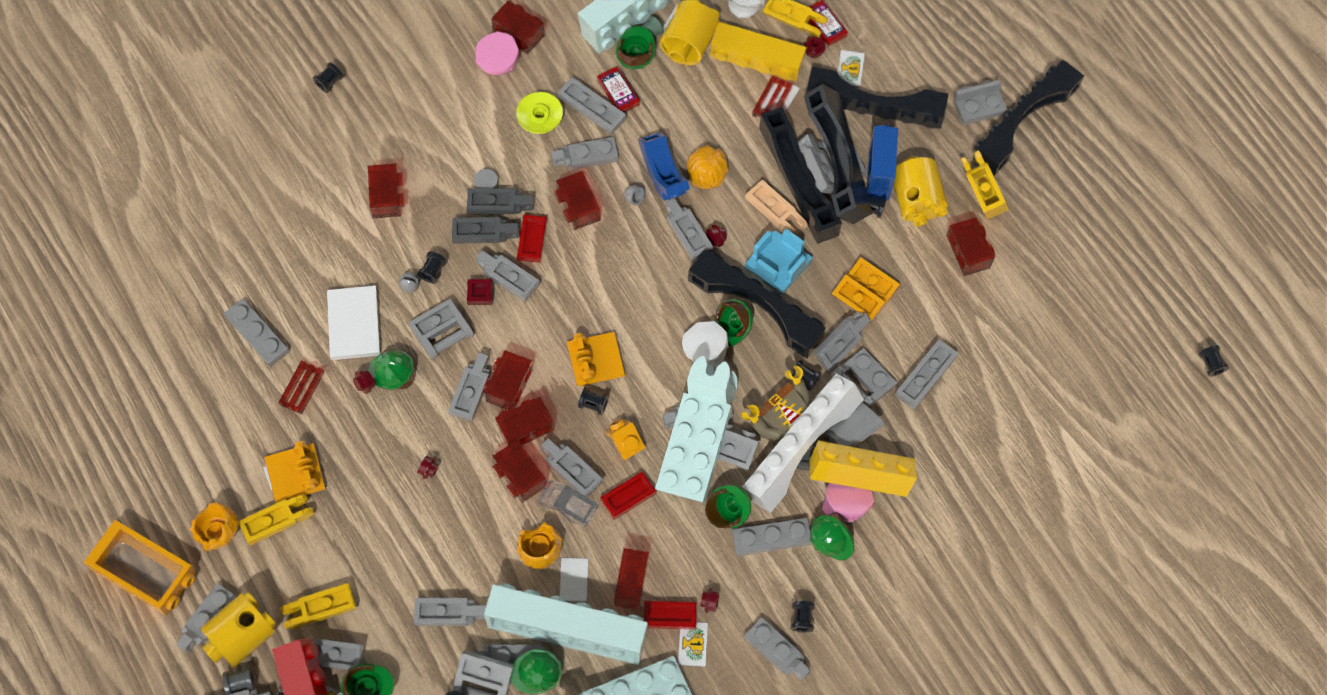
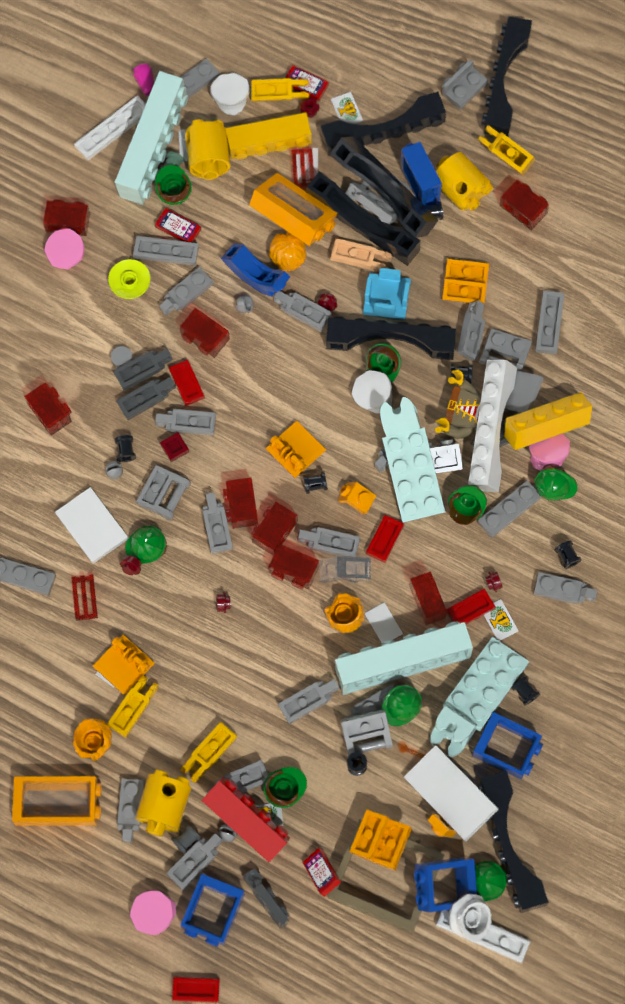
camera: 25 degrees left, 5 degrees up
(736, 129) = (293, 209): none -> light orange piece

